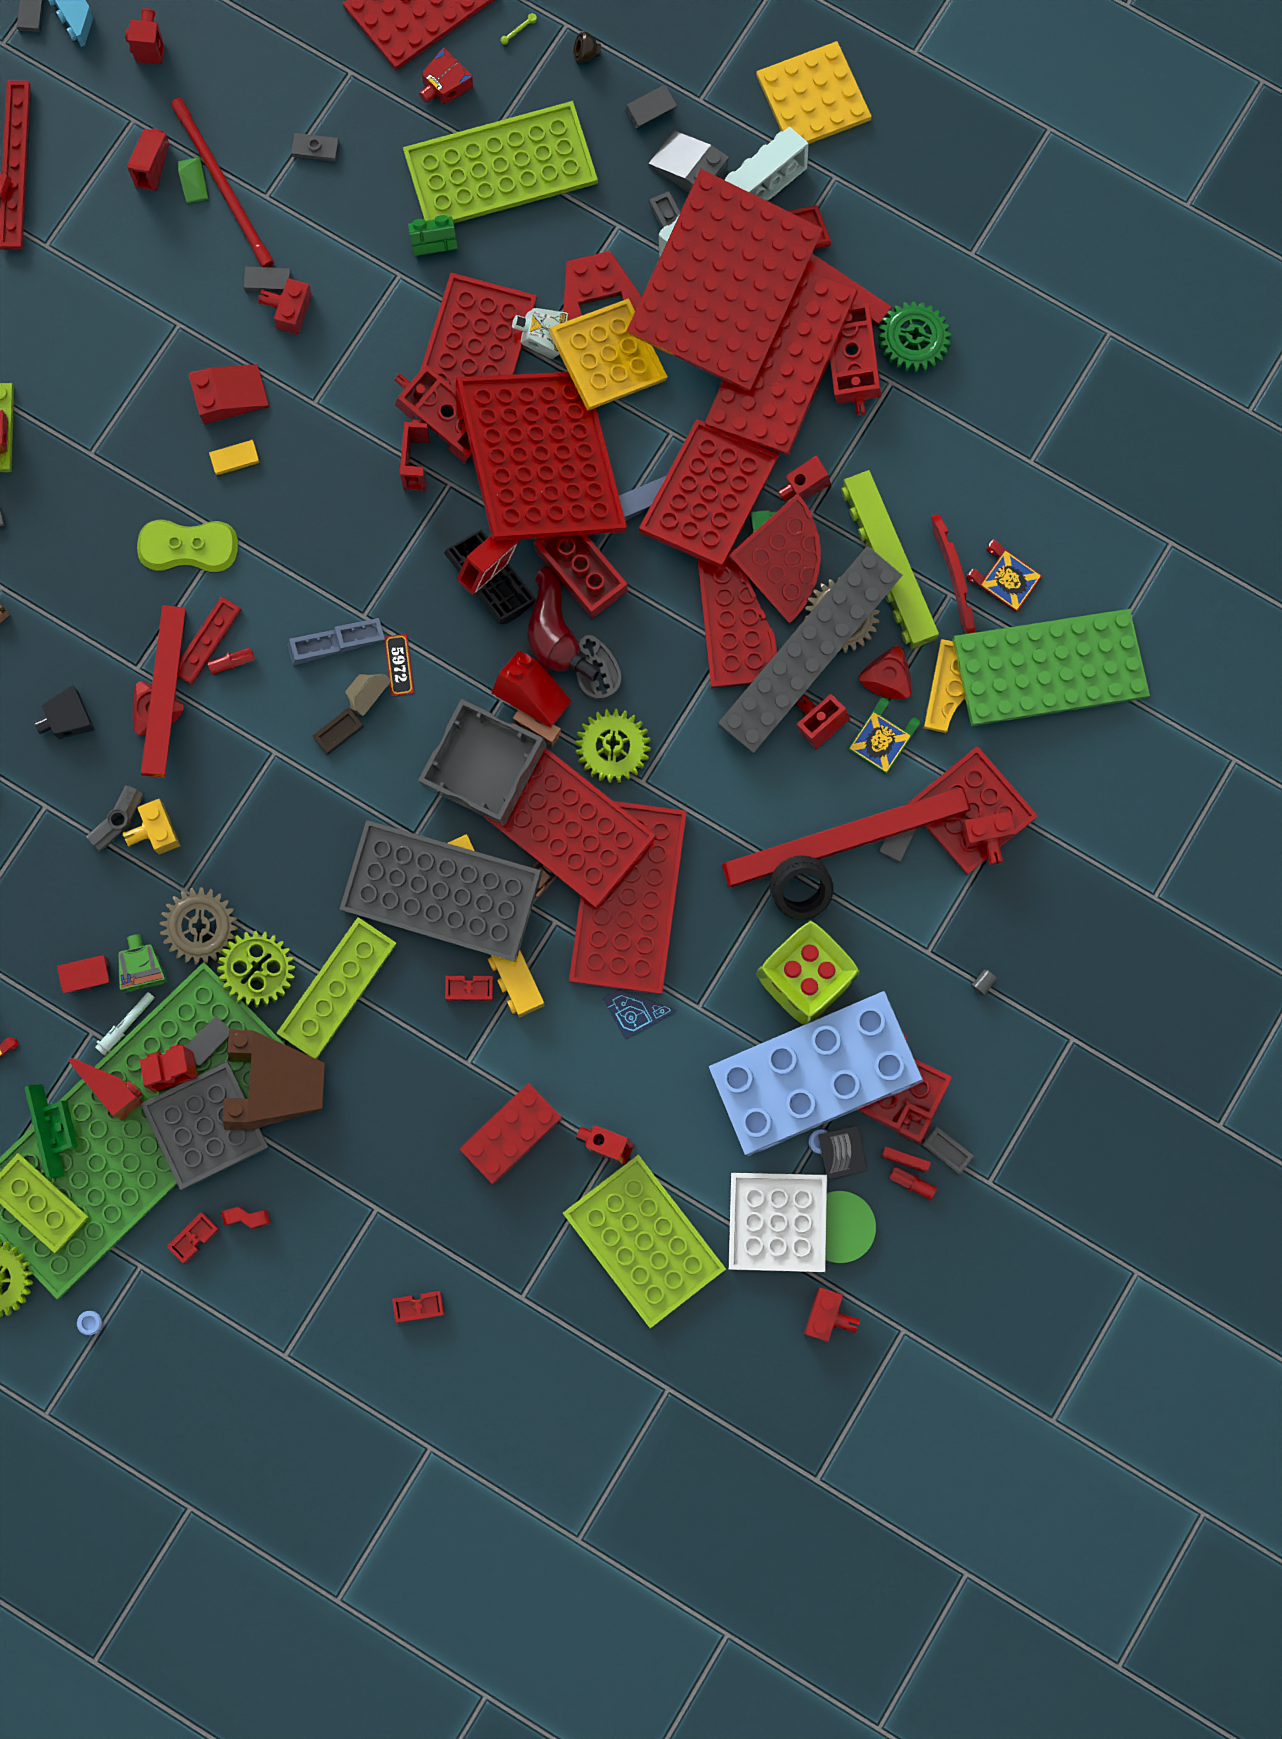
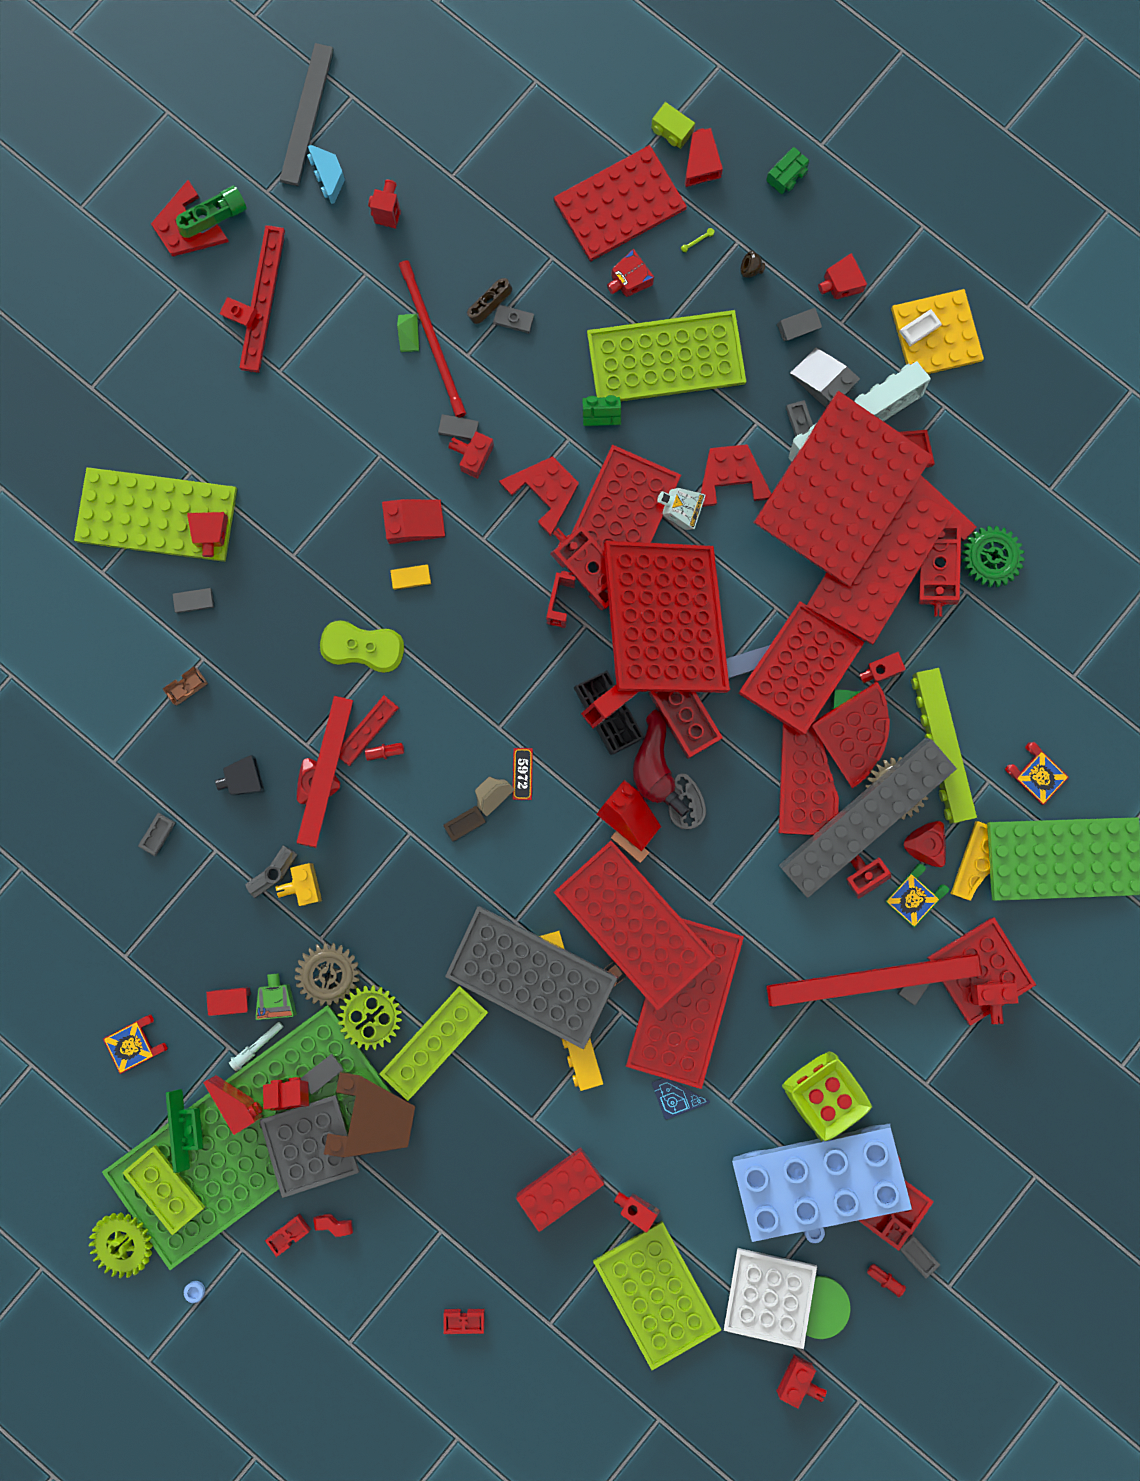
camera: 10 degrees right, 5 degrees up
(148, 159) = (374, 310): red slope -> none
(275, 141) = (501, 288): none -> dark brown beam
(335, 641) = (473, 746): sand blue slope -> none
(383, 327) = (550, 483): none -> red wing
(469, 990) = (542, 1061): red piece -> none
(482, 762) = (580, 873): dark grey tile -> none
(604, 357) = (730, 538): yellow plate -> none
(615, 724) = (686, 889): lime gear -> none
(694, 49) = (843, 279): none -> red torso
(791, 91) = (920, 327): none -> white tile
(810, 907) = (833, 1034): black tyre -> none
(842, 1152) = (831, 1245): black sticker -> none
(905, 1159) = (883, 1260): red tile -> none
(955, 571) = (999, 767): red tile -> none
(984, 982) = (970, 1118): dark grey hinge -> none

